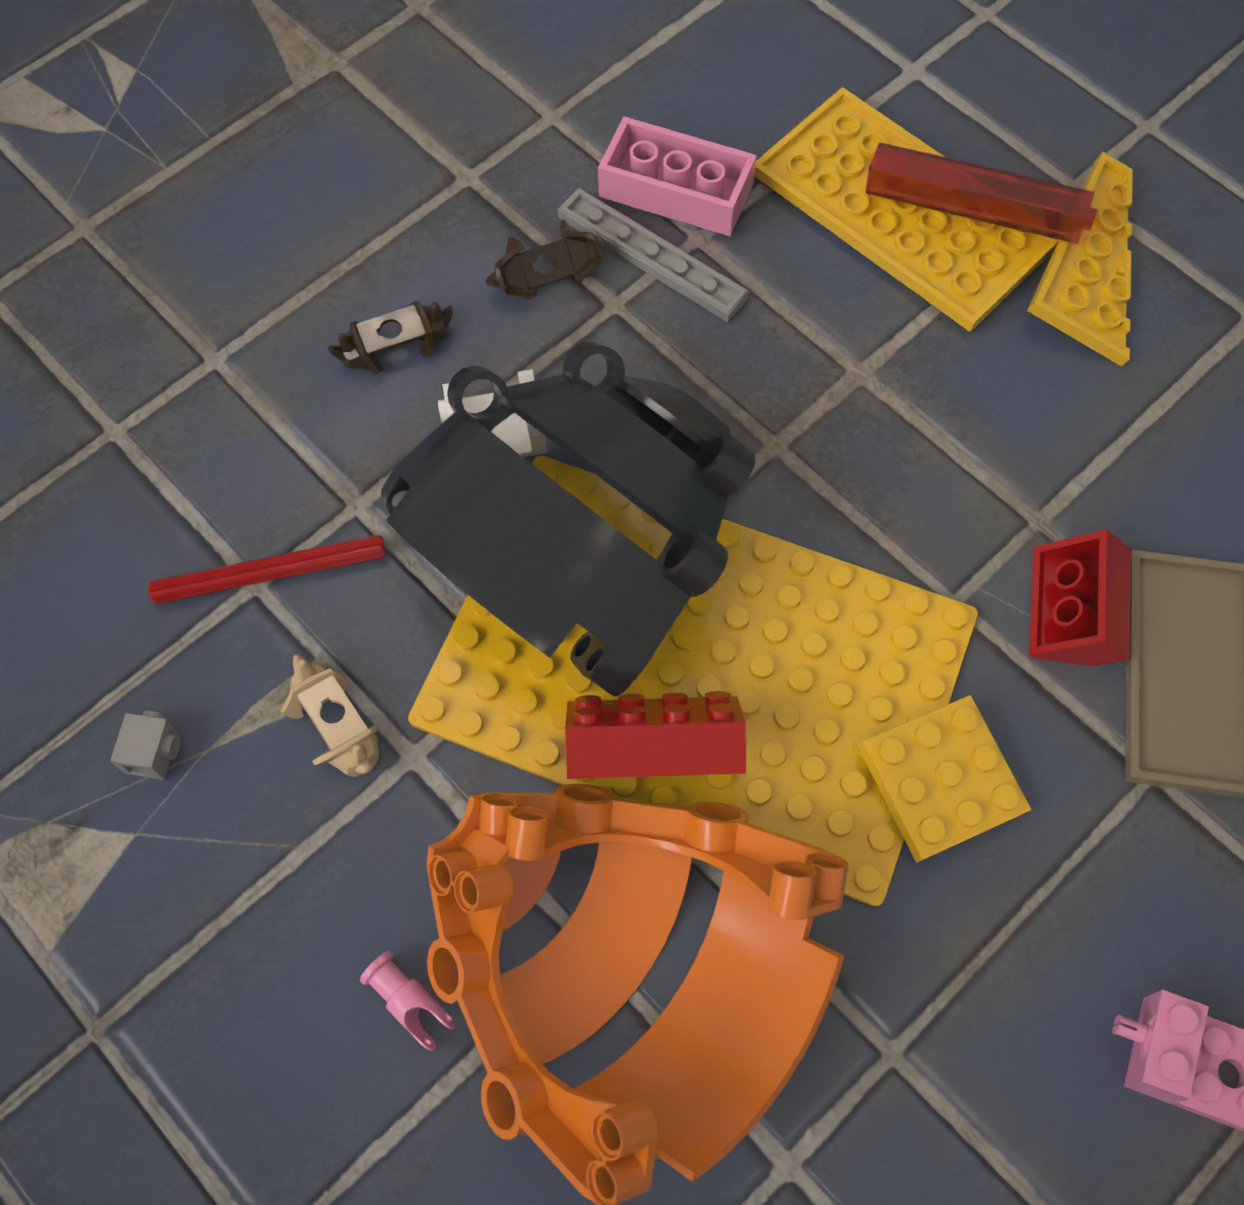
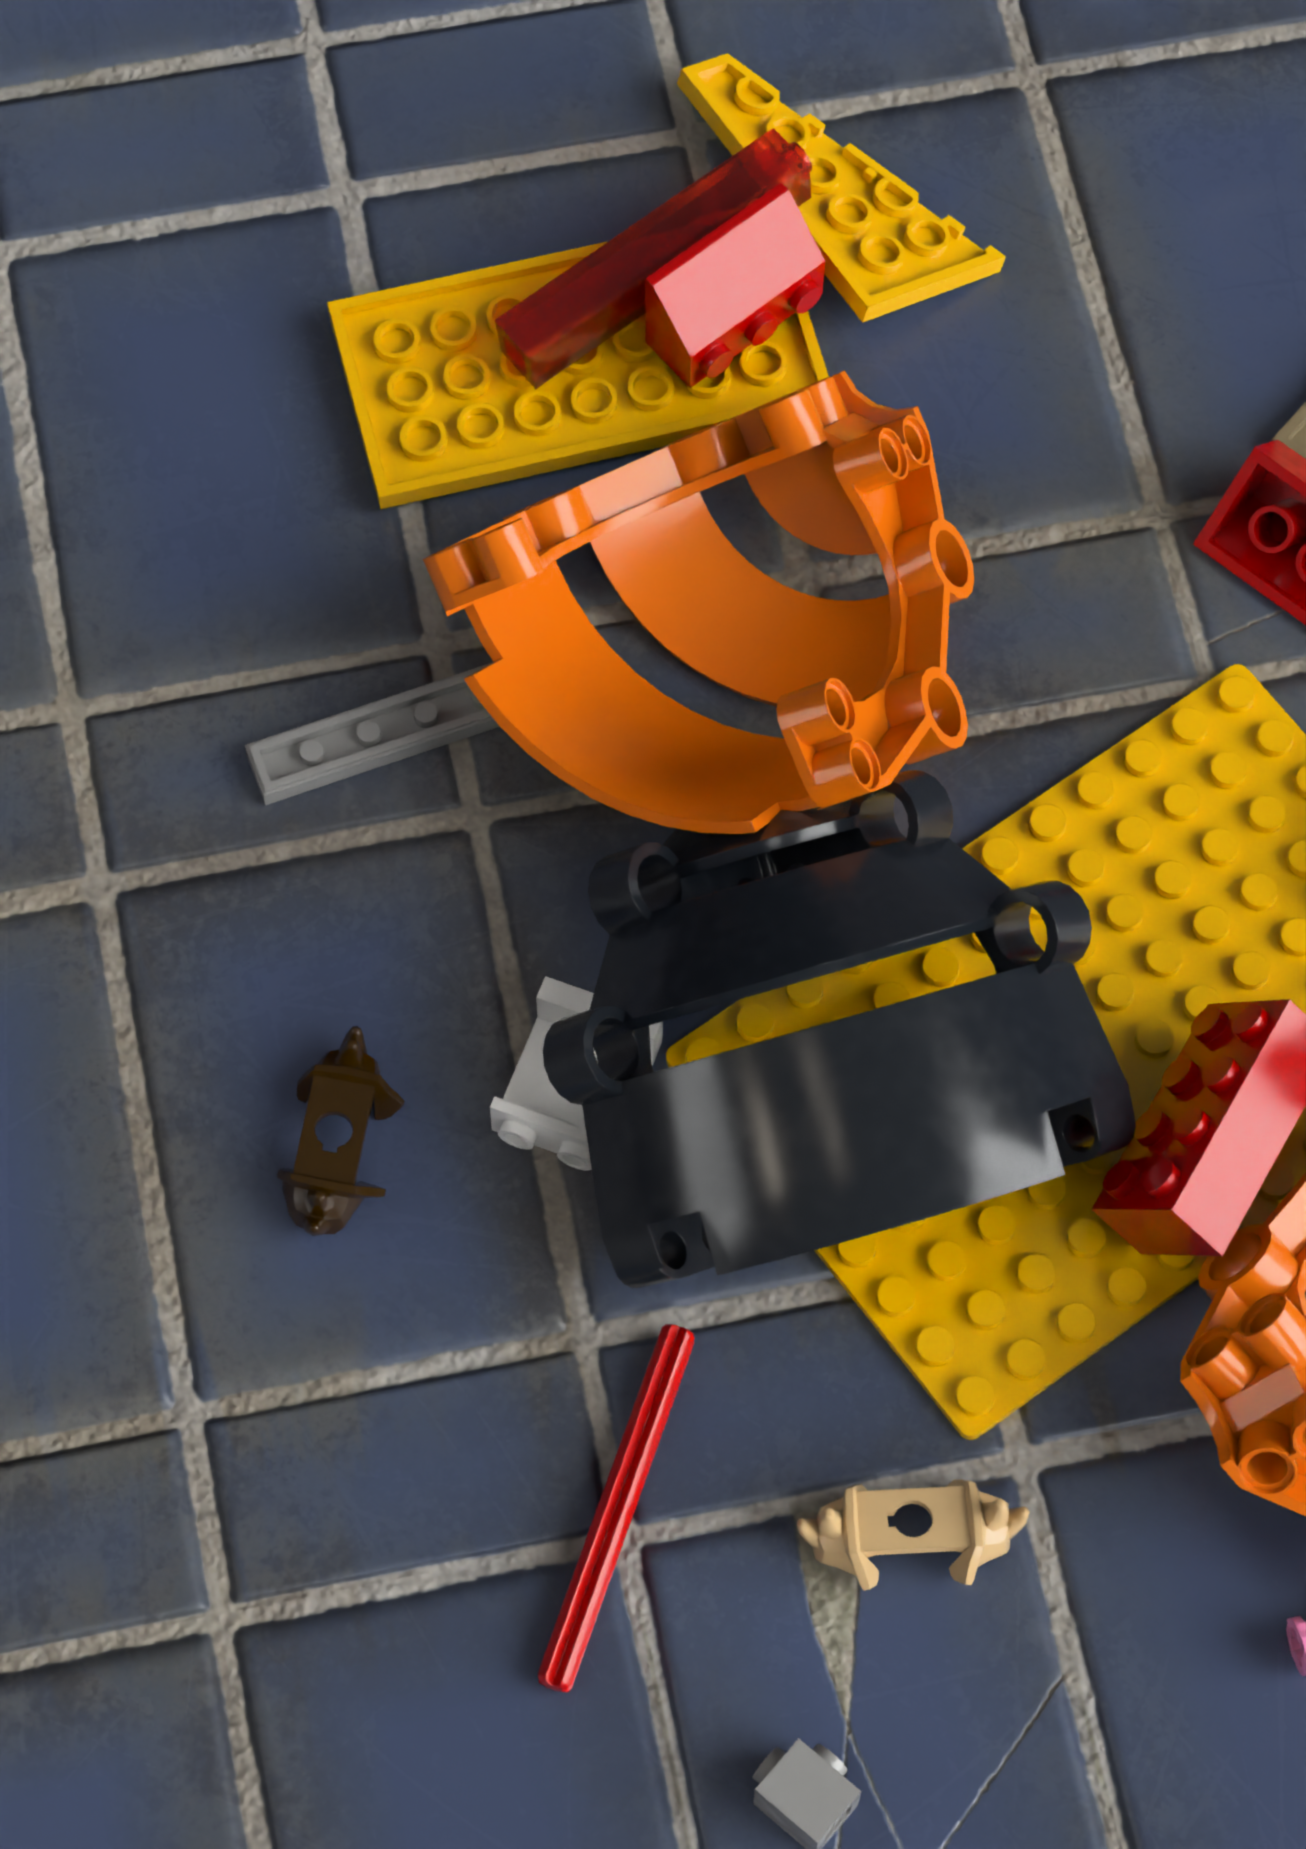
camera: 60 degrees left, 0 degrees up
(573, 255) = (366, 820): dark brown piece -> none
(676, 175) = (328, 606): bright pink brick -> none
(694, 307) = (850, 679): none -> orange piece
(990, 230) = (733, 287): none -> slope

